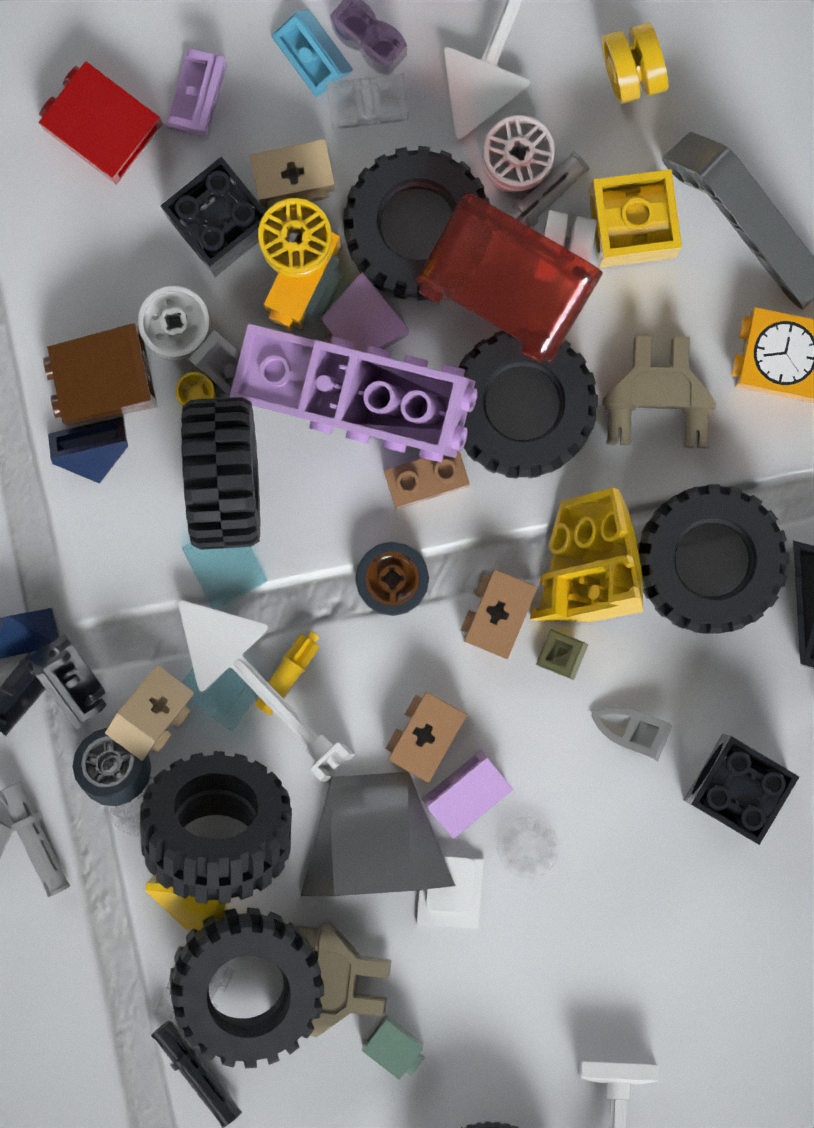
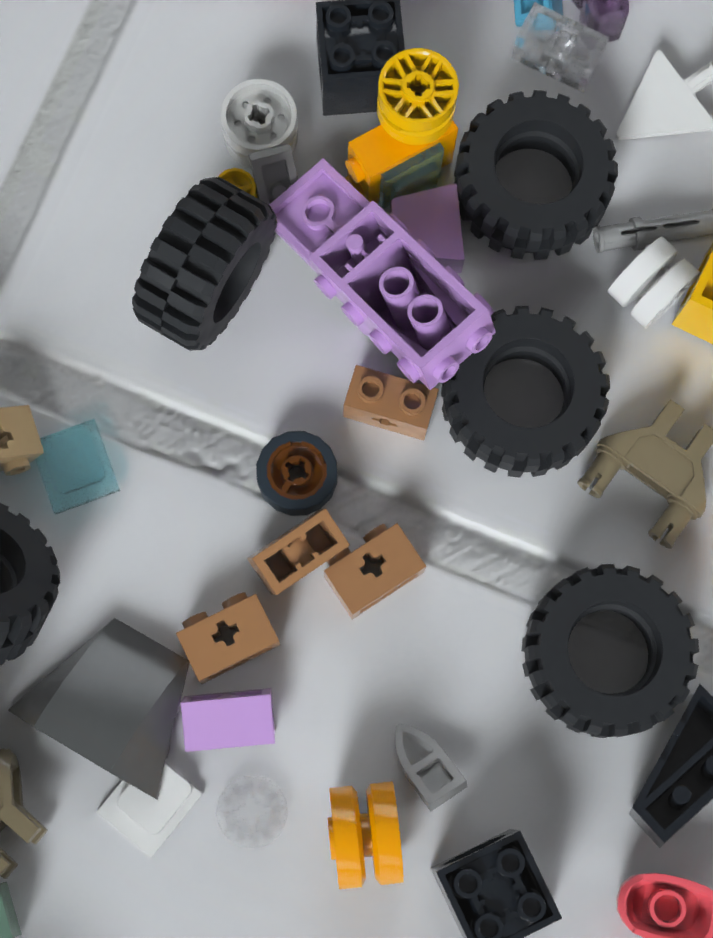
camera: 30 degrees right, 10 degrees down
(89, 448) = (108, 184): dark blue slope -> none
(100, 376) = (164, 124): reddish brown slope -> none
(219, 643) = (98, 424): white piece -> none
(225, 572) = (153, 366): clear light blue piece -> none
(291, 667) = (142, 494): yellow piece -> none
(307, 158) = (472, 62): tan brick -> none
(435, 639) = (298, 552): none -> medium nougat brick
(508, 276) = (594, 255): clear red windscreen -> none
(530, 139) = (664, 176): white wheel -> none
(562, 654) = (407, 648): olive tile -> none
(593, 562) = (495, 580): yellow wedge -> none
(623, 810) = (365, 835): none -> light orange wheel

